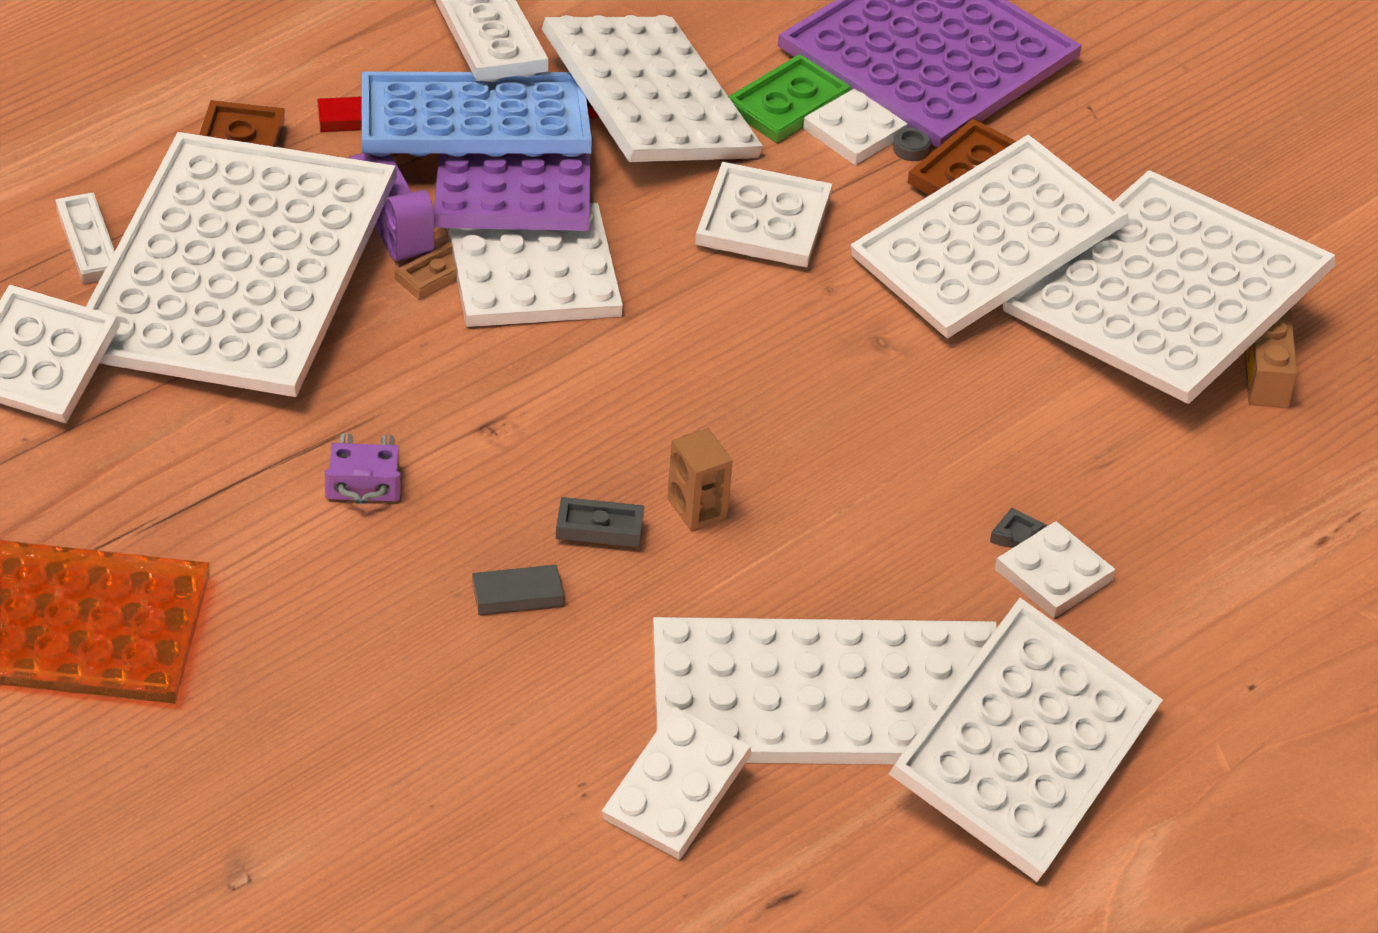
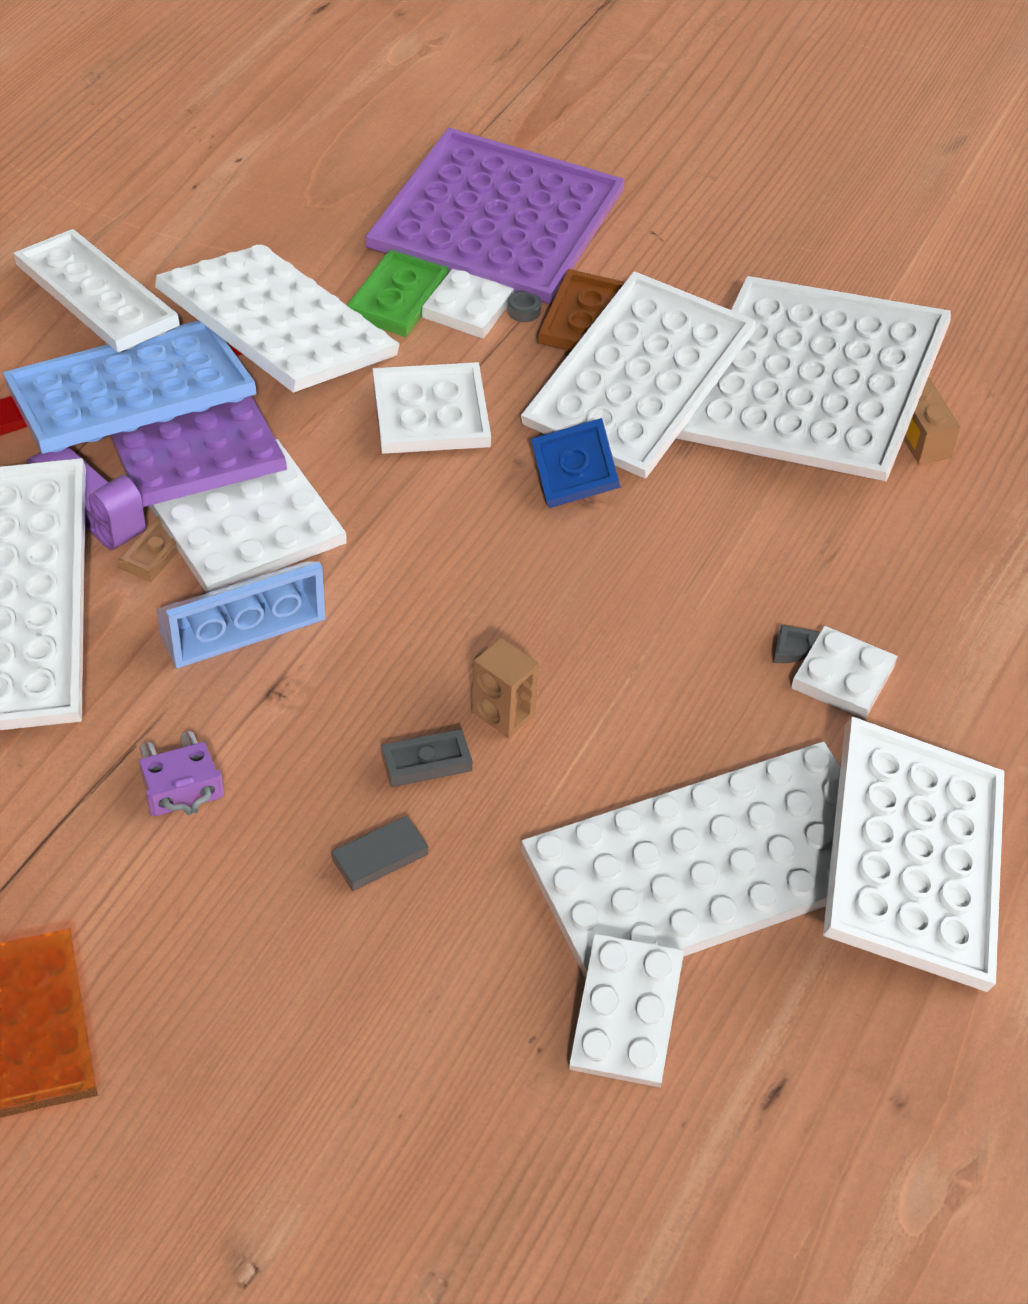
camera: 20 degrees left, 5 degrees up
(487, 347) = (243, 613): none -> light blue slope
(879, 302) = (575, 463): none -> blue plate

